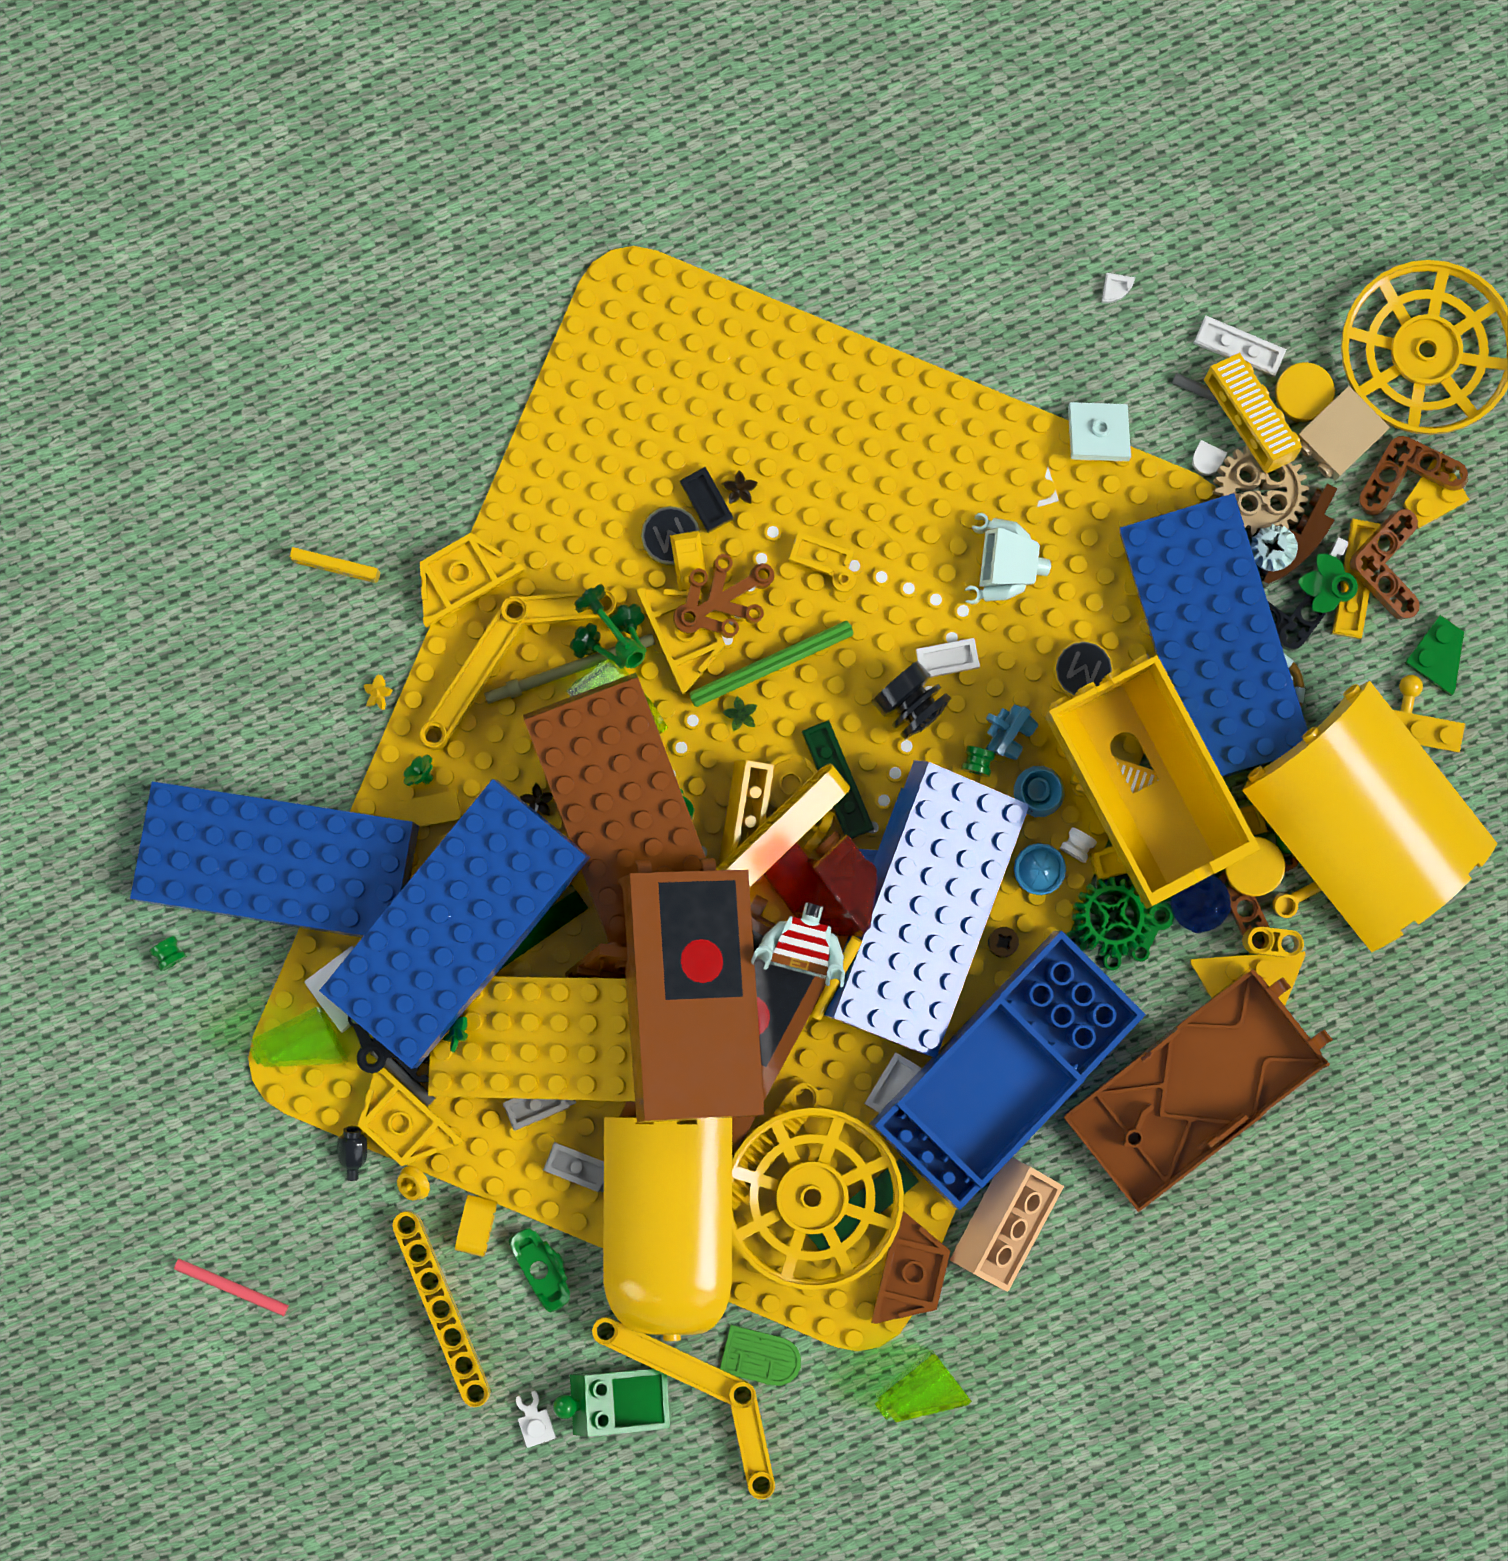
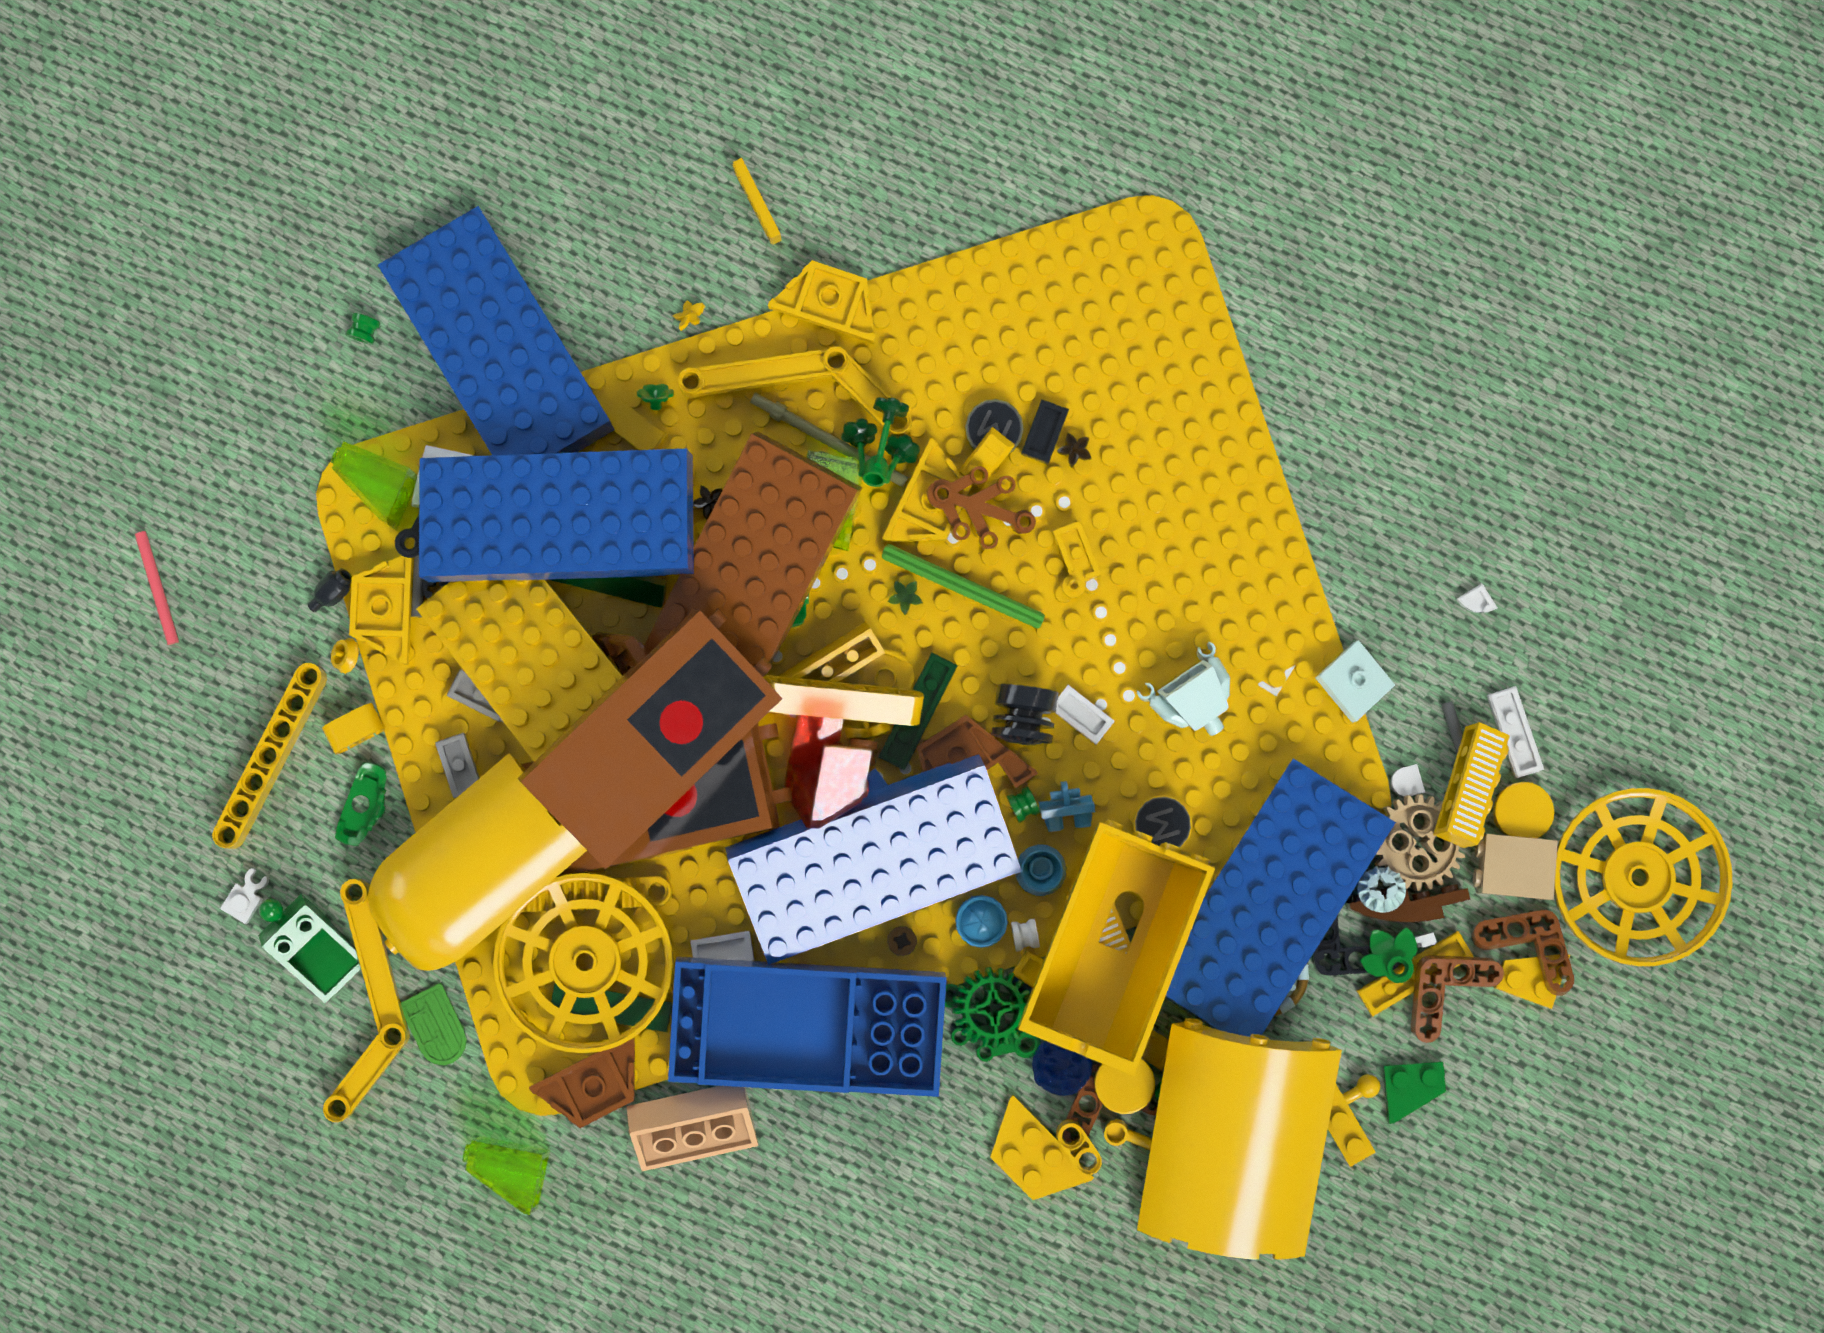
camera: 50 degrees right, 0 degrees up
(457, 1033) = (478, 589): green plant -> none
(803, 946) = (761, 790): torso -> none
(829, 991) = (760, 836): yellow bar -> none
(892, 763) = (967, 739): none -> dark orange wing
(1197, 1088) = (916, 1184): dark orange piece -> none

